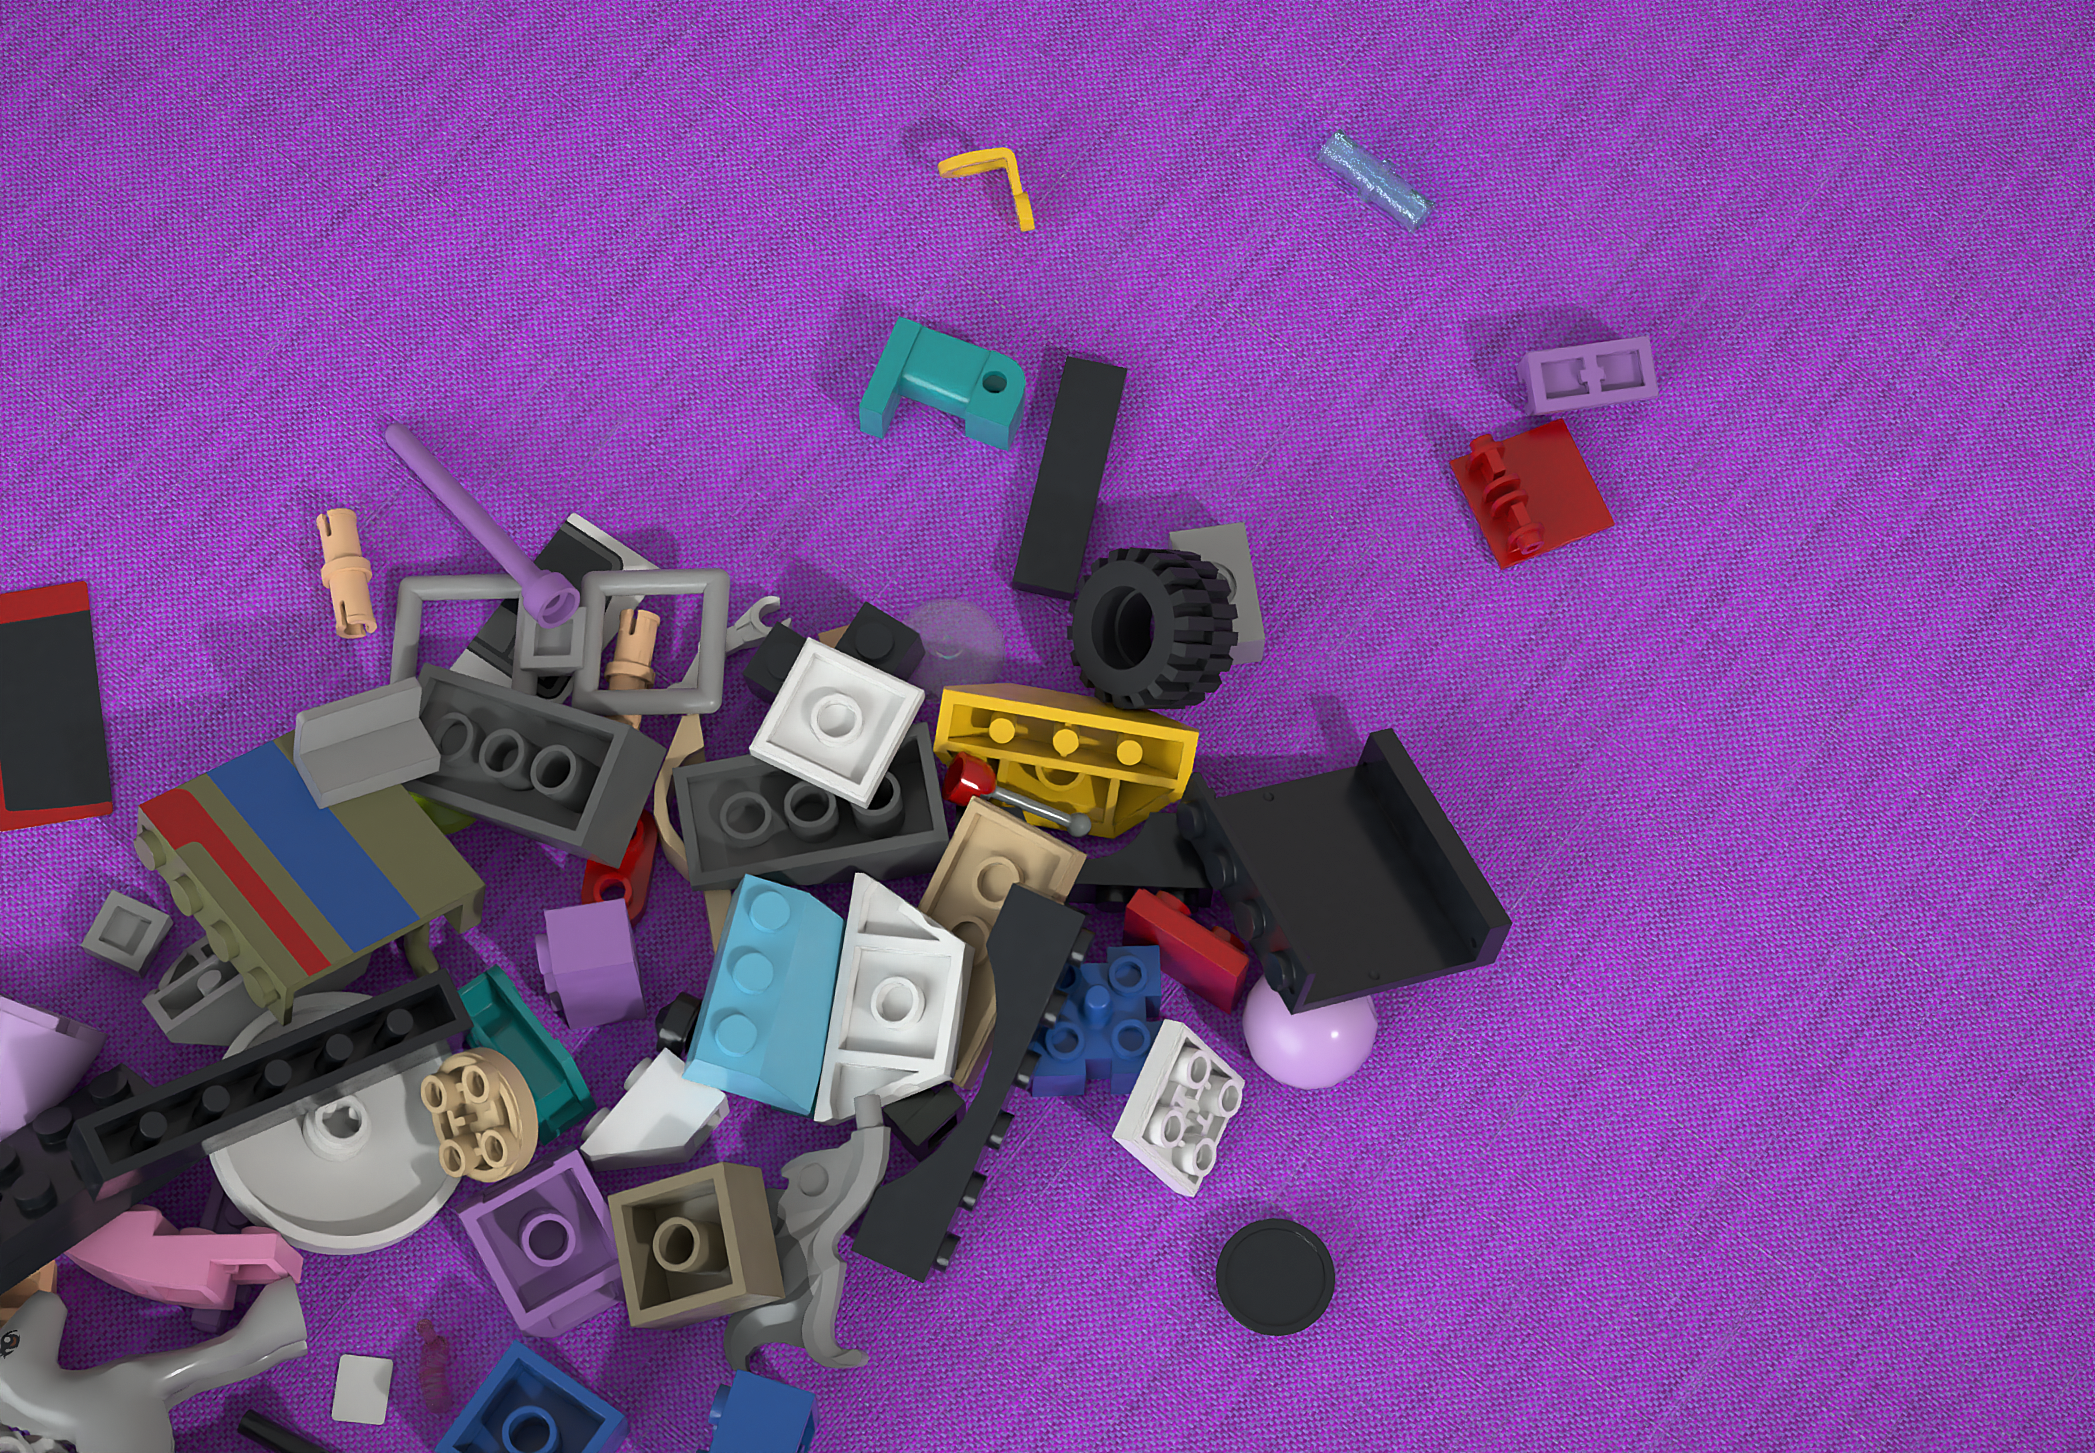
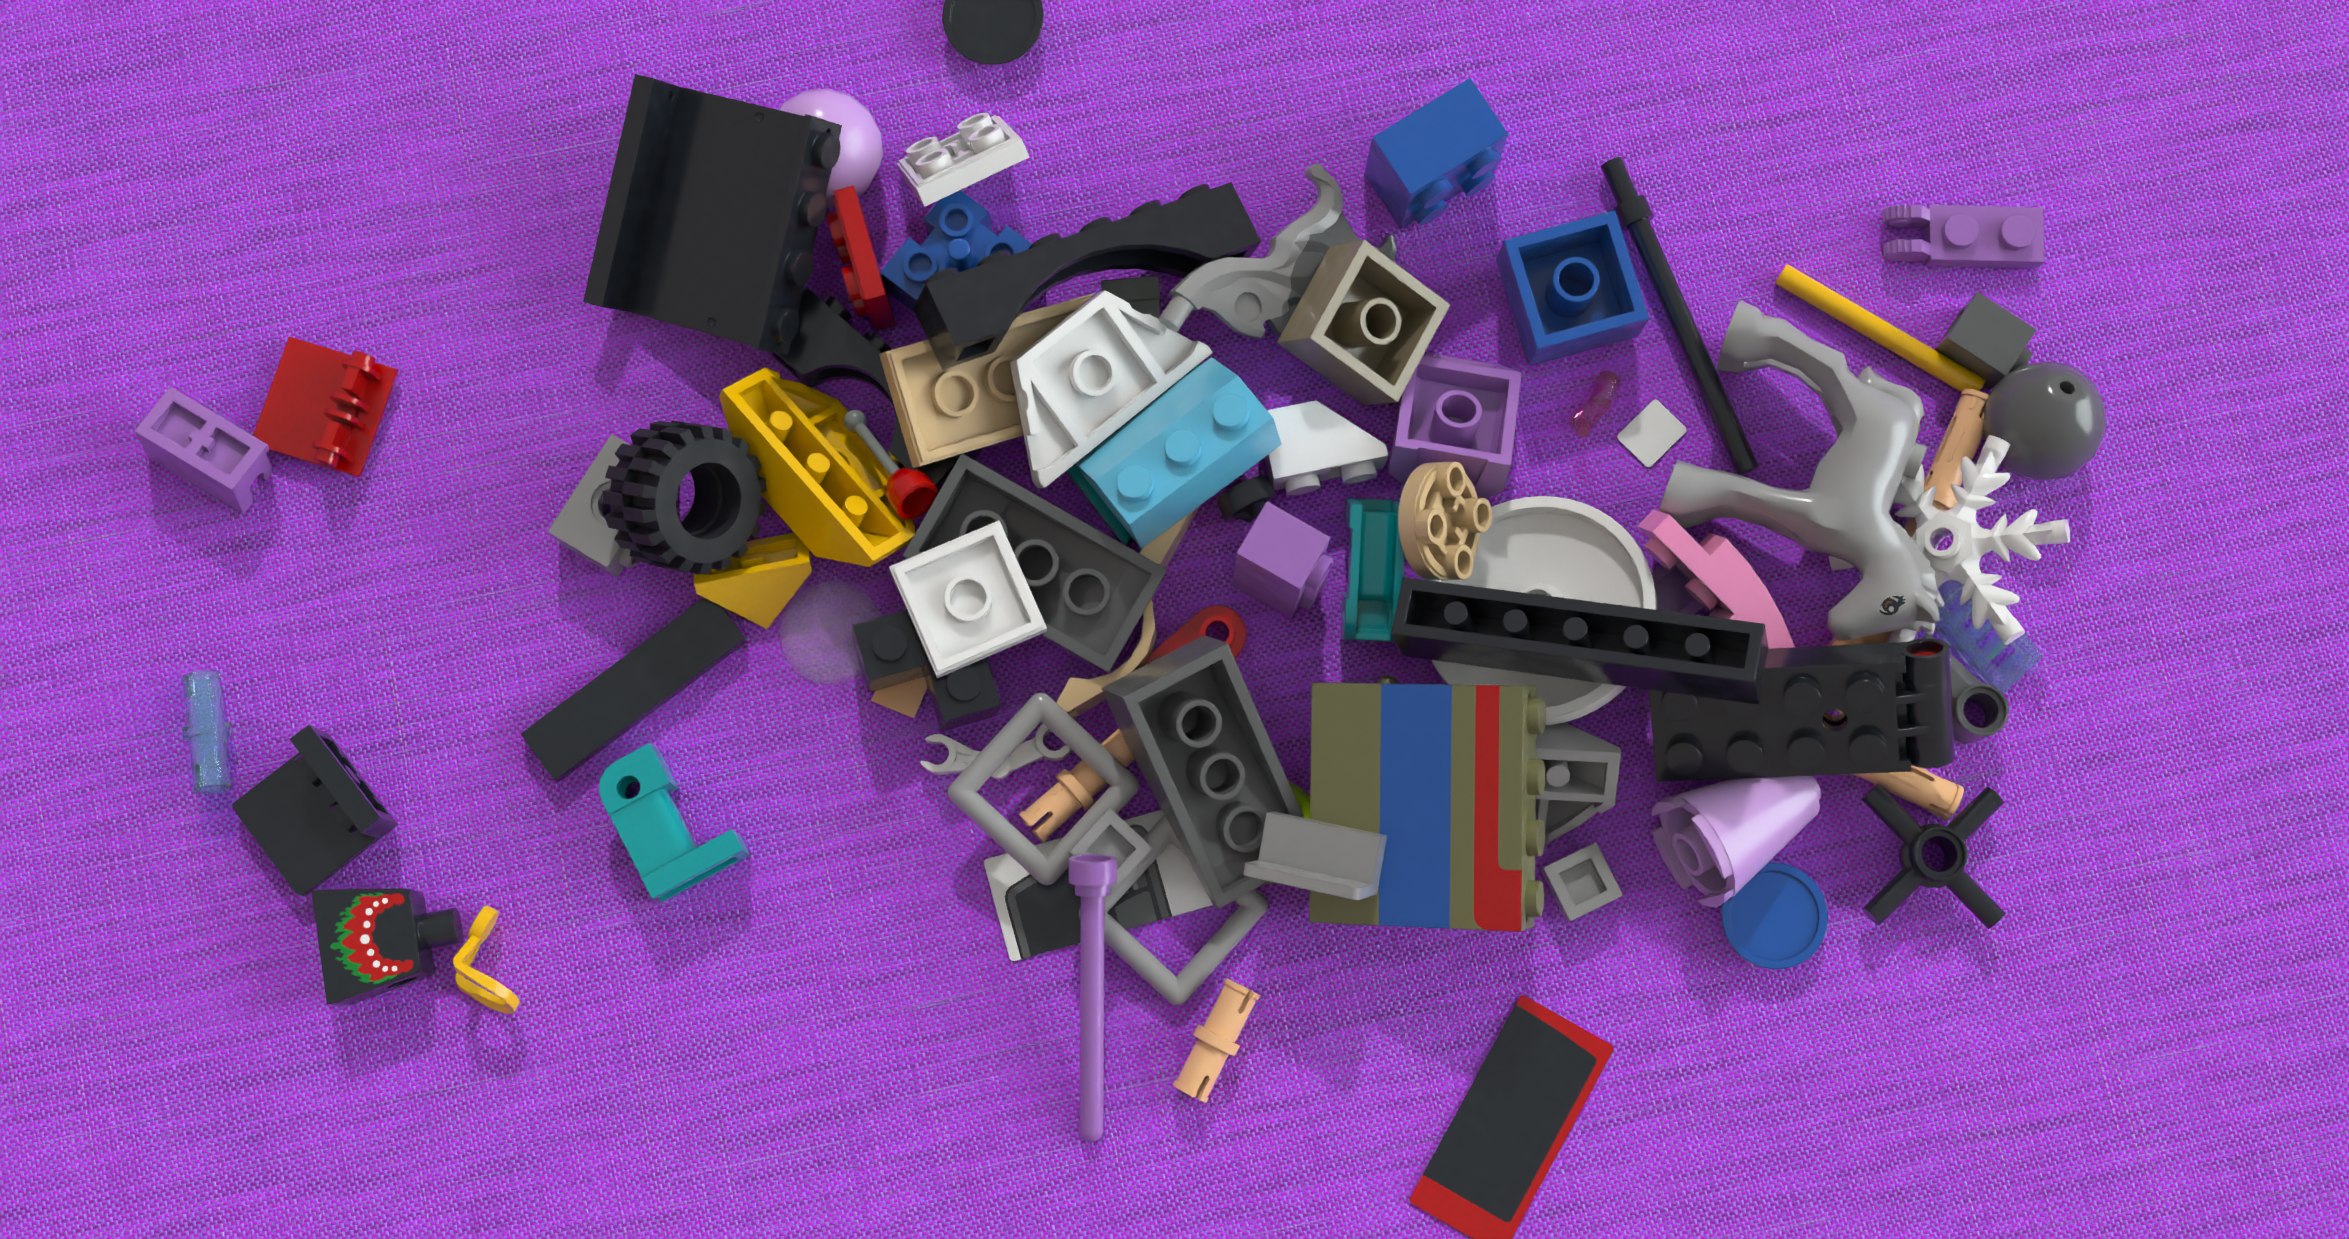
camera: 140 degrees left, 10 degrees up
(1037, 642) = (760, 580): none -> yellow slope
(1095, 136) = (378, 940): none -> black torso
(1233, 189) = (314, 812): none -> black bracket

